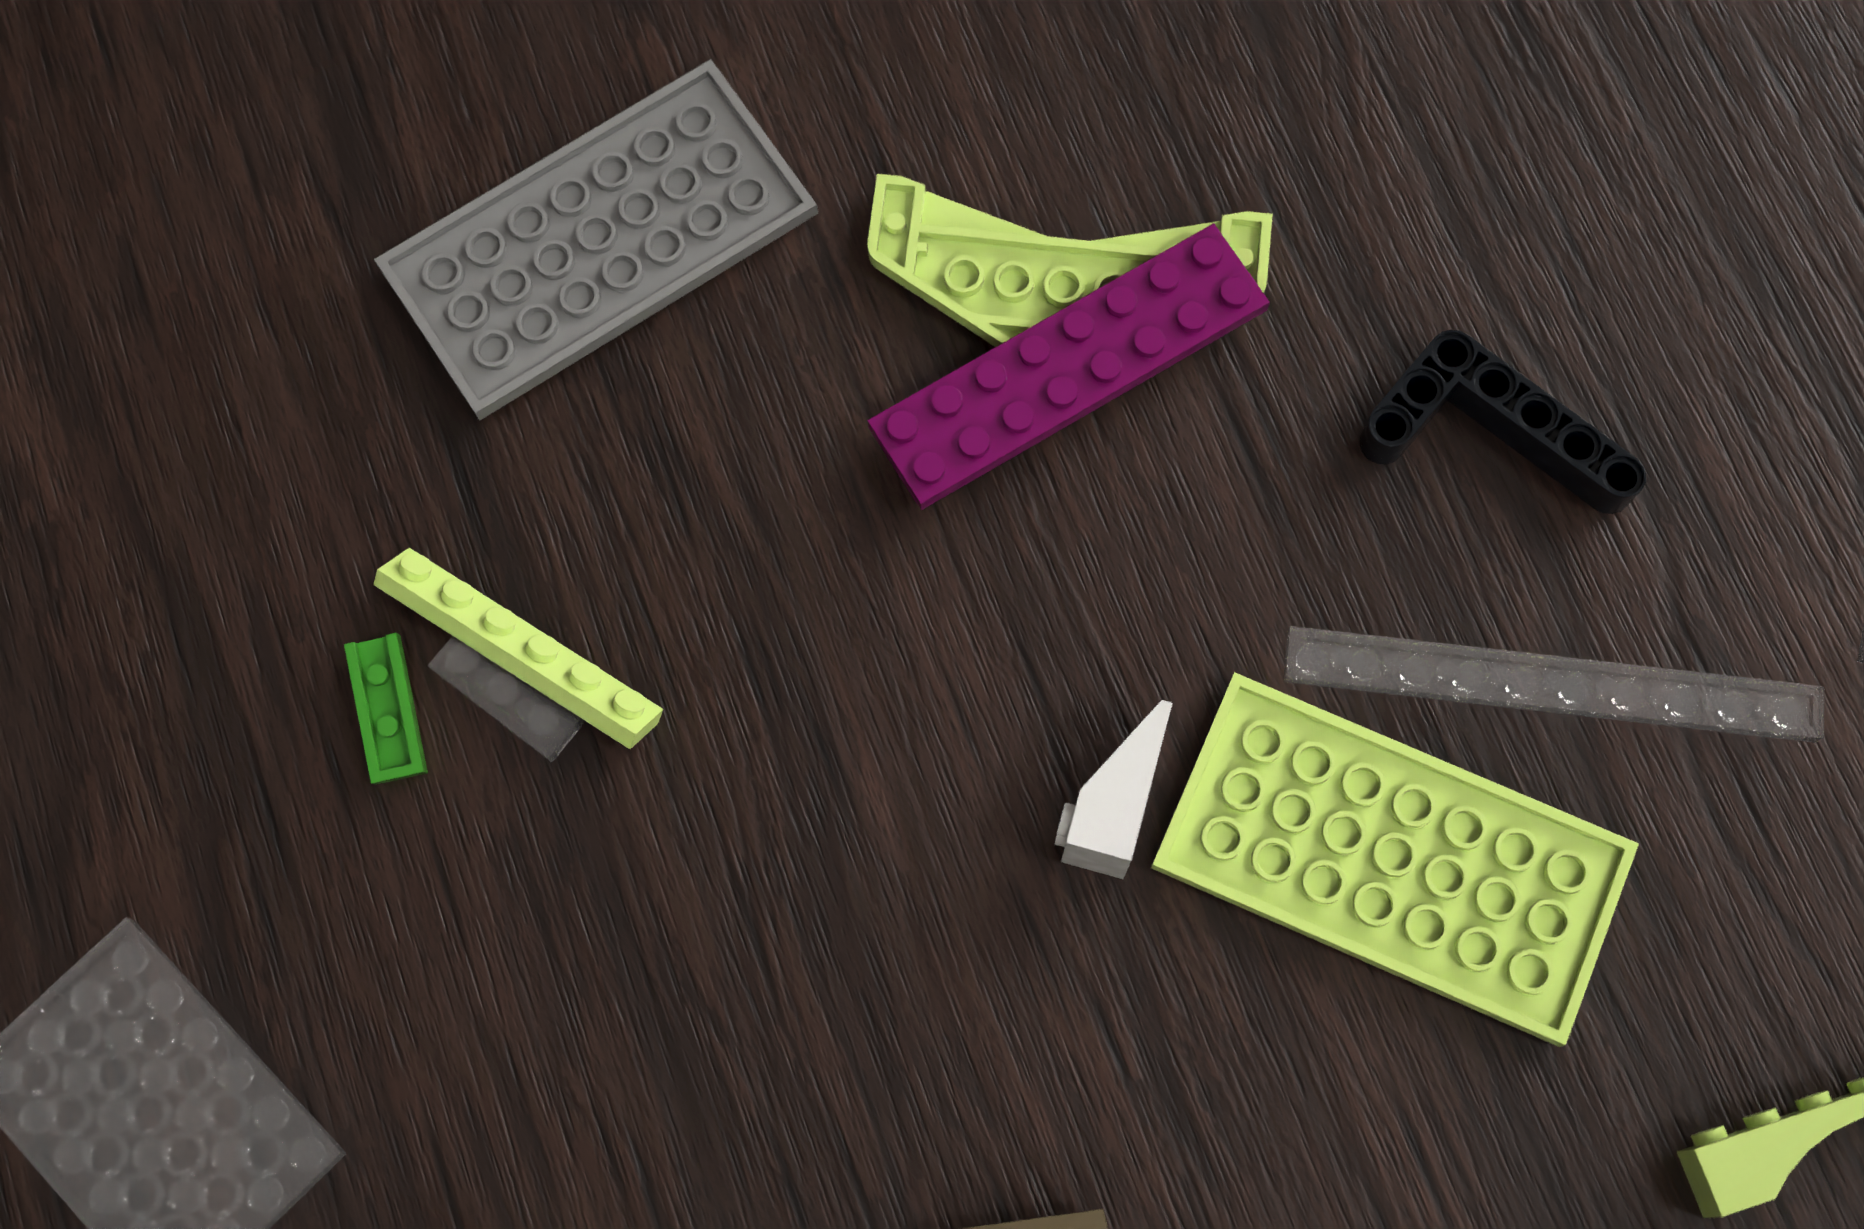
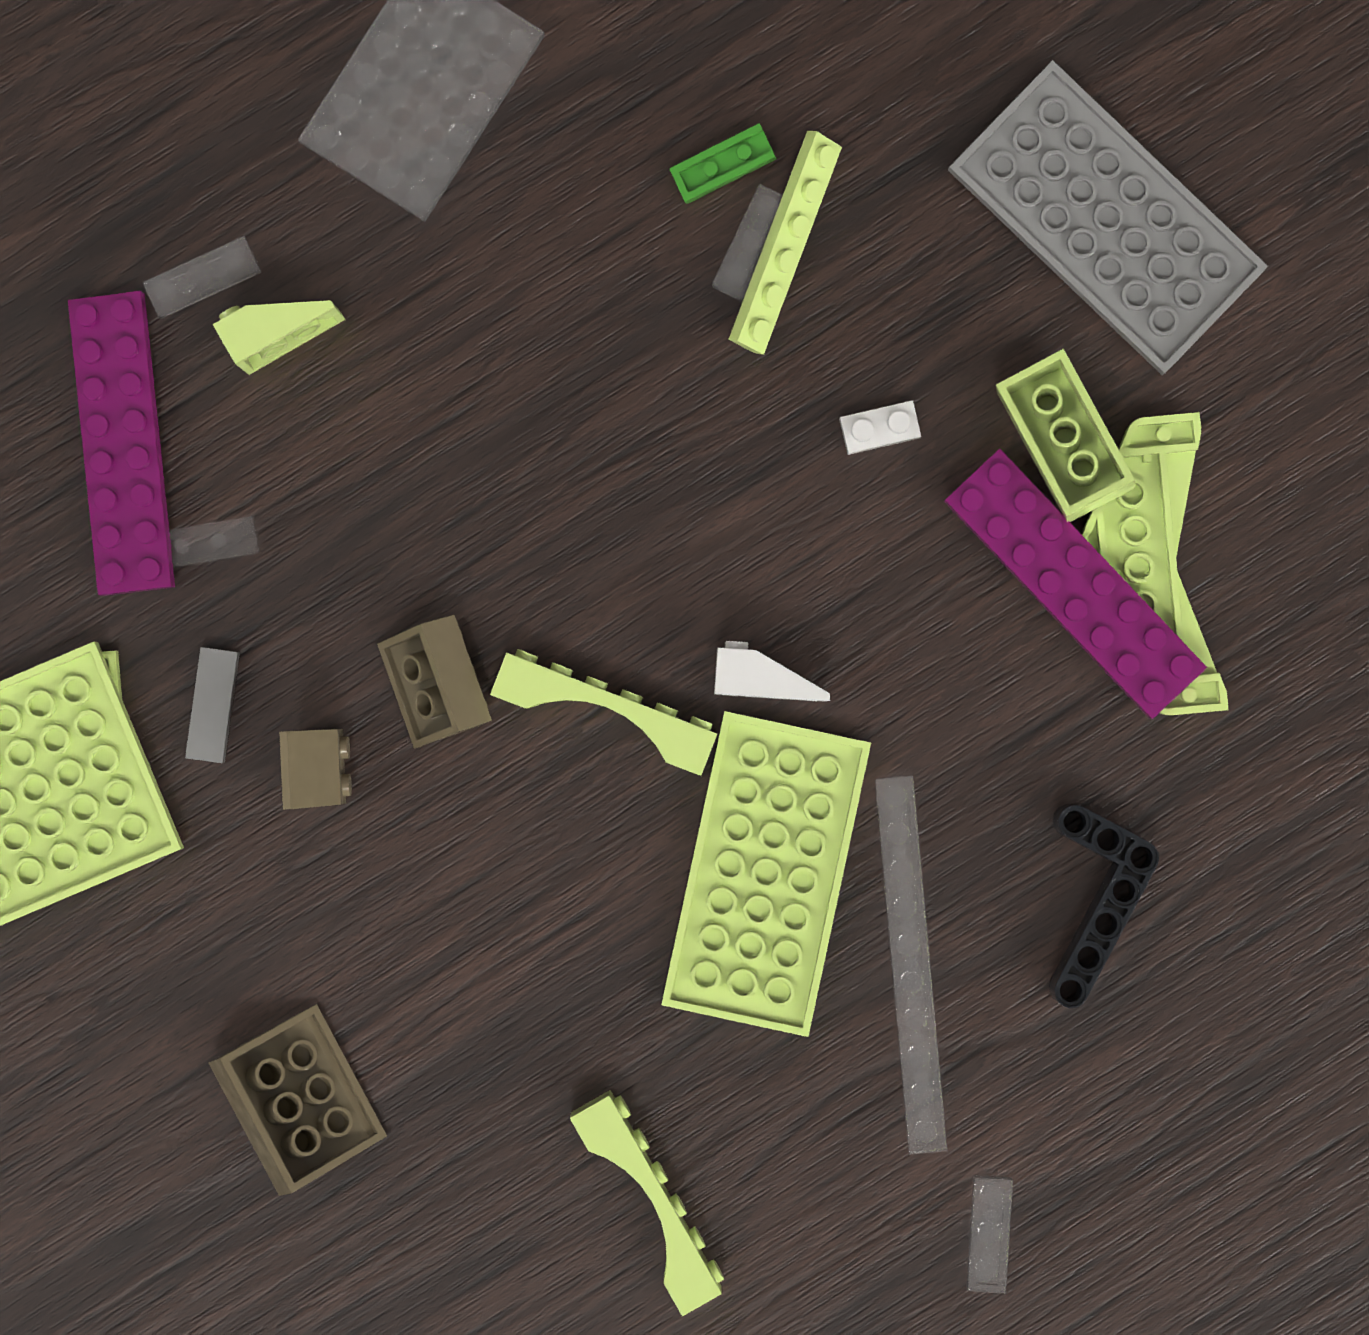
camera: 80 degrees right, 15 degrees up
(801, 576) = (880, 427): none -> white plate
(870, 333) = (1065, 436): none -> yellowish green brick
(1061, 1137) = (530, 685): none -> yellowish green arch

